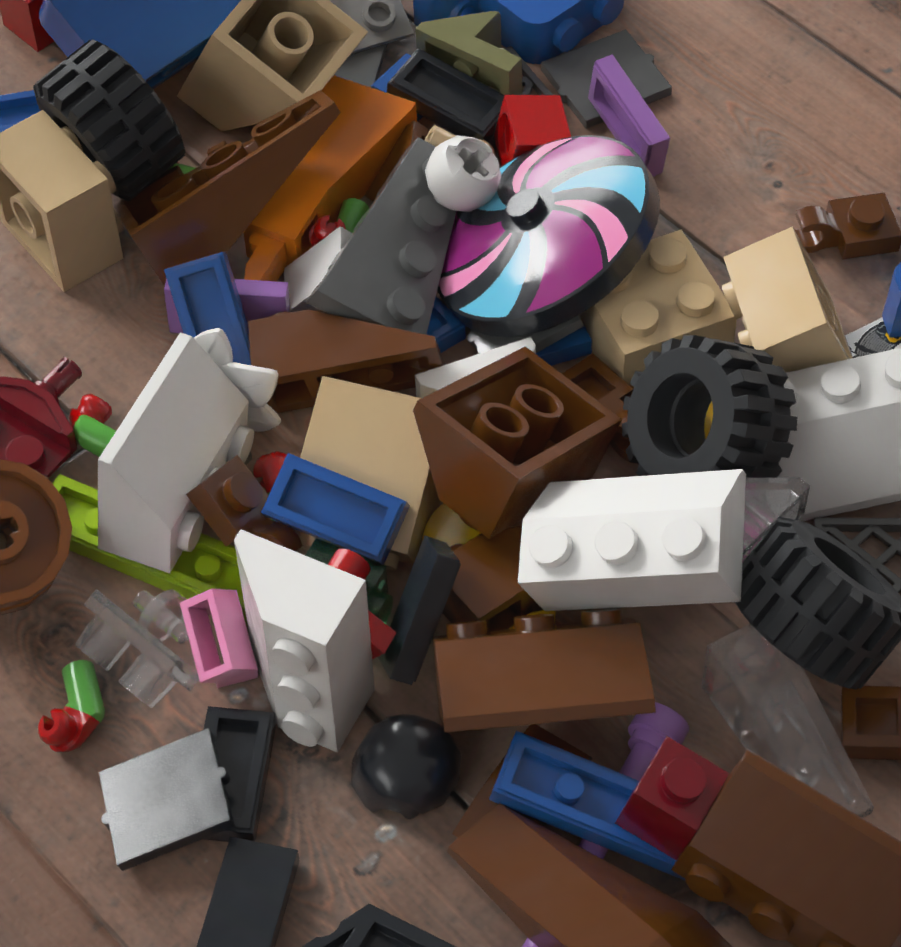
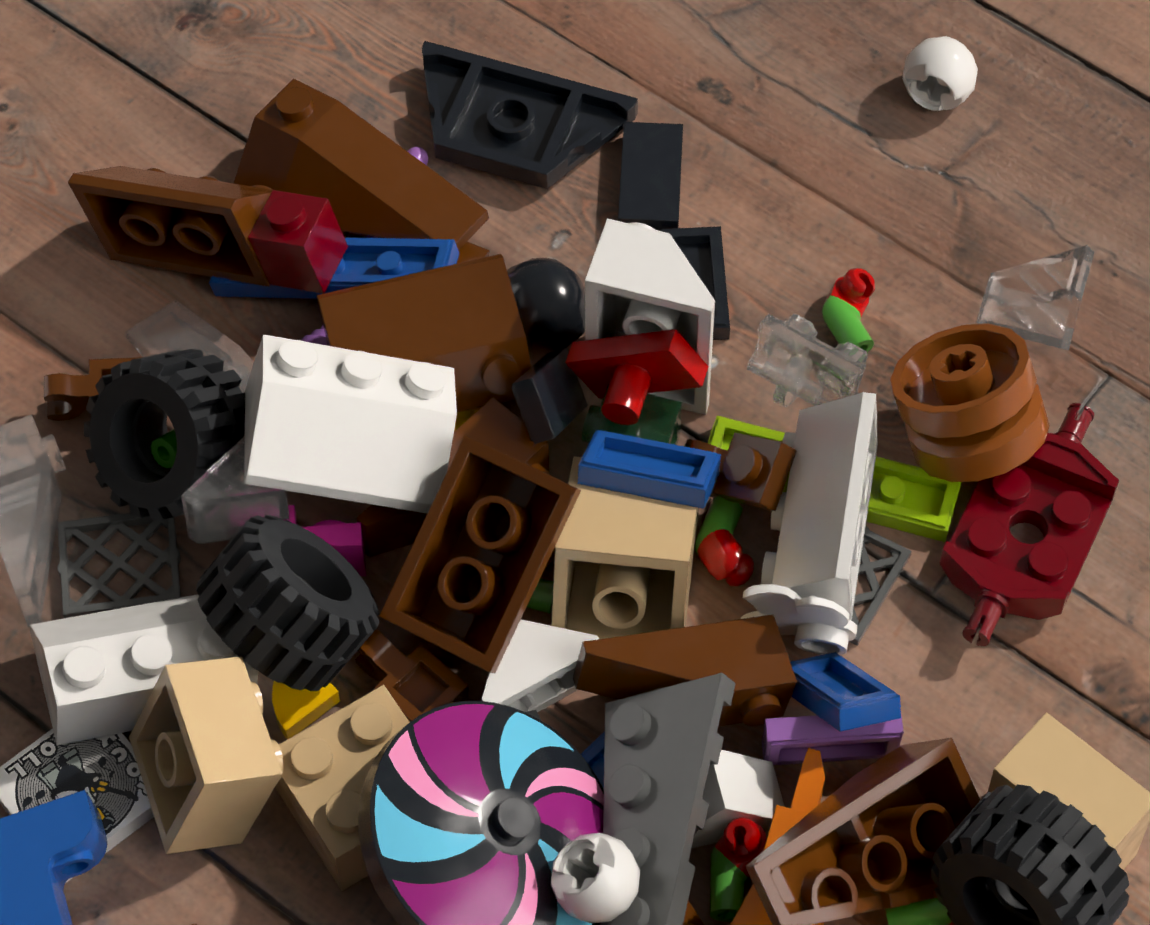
camera: 170 degrees right, 5 degrees up
(89, 424) = (929, 574): arm -> none
(166, 799) = (742, 243): piece -> none
(231, 634) = (737, 371): bright pink piece -> none

